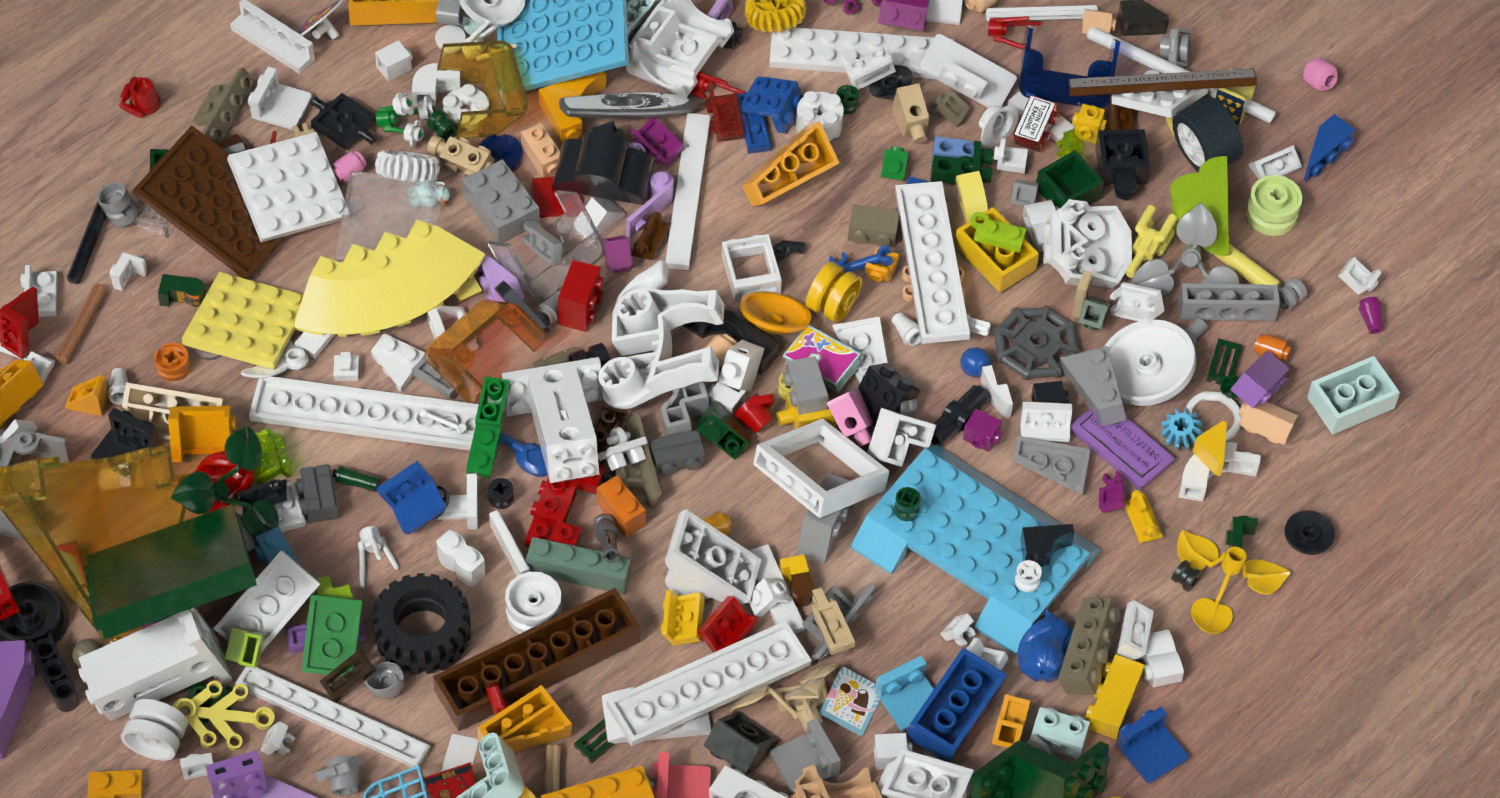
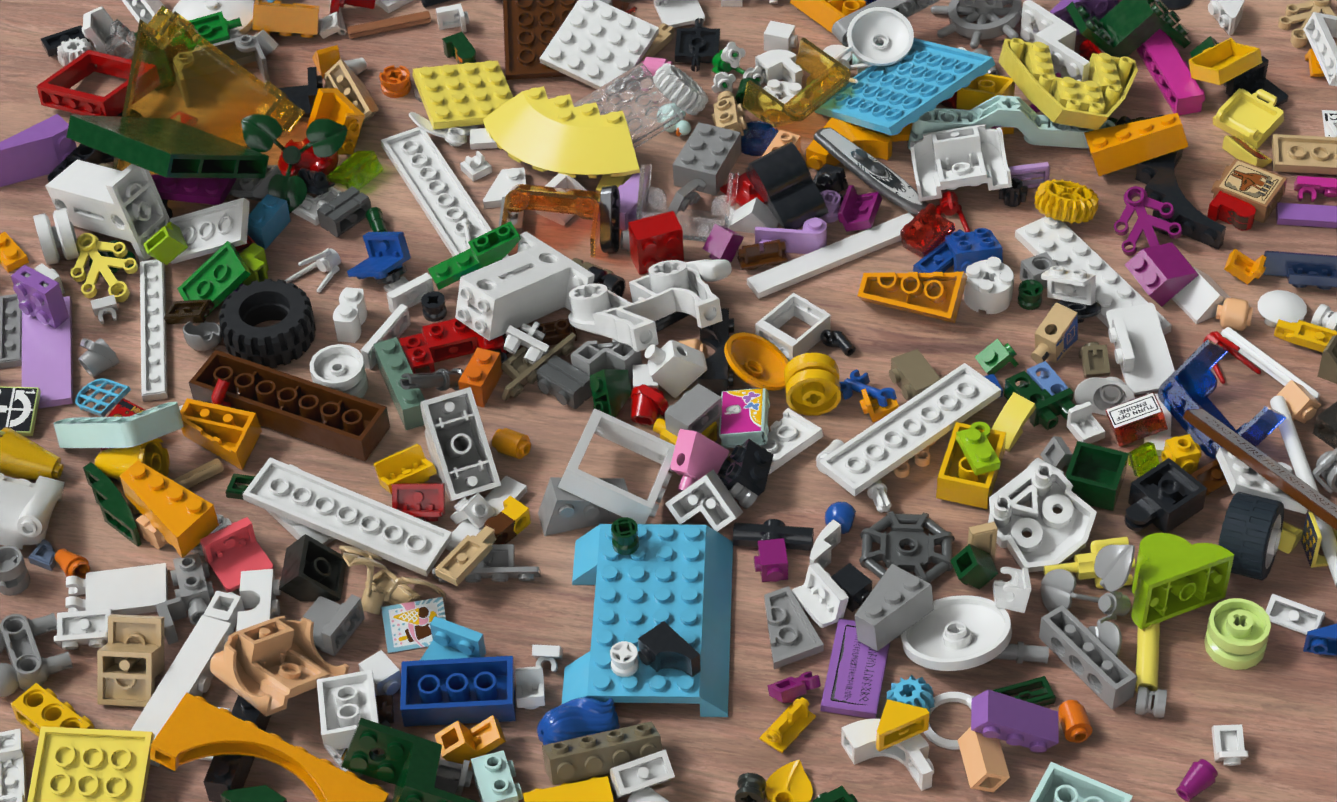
camera: 60 degrees right, 10 degrees down
(830, 76) = (1035, 266): none -> light grey brick

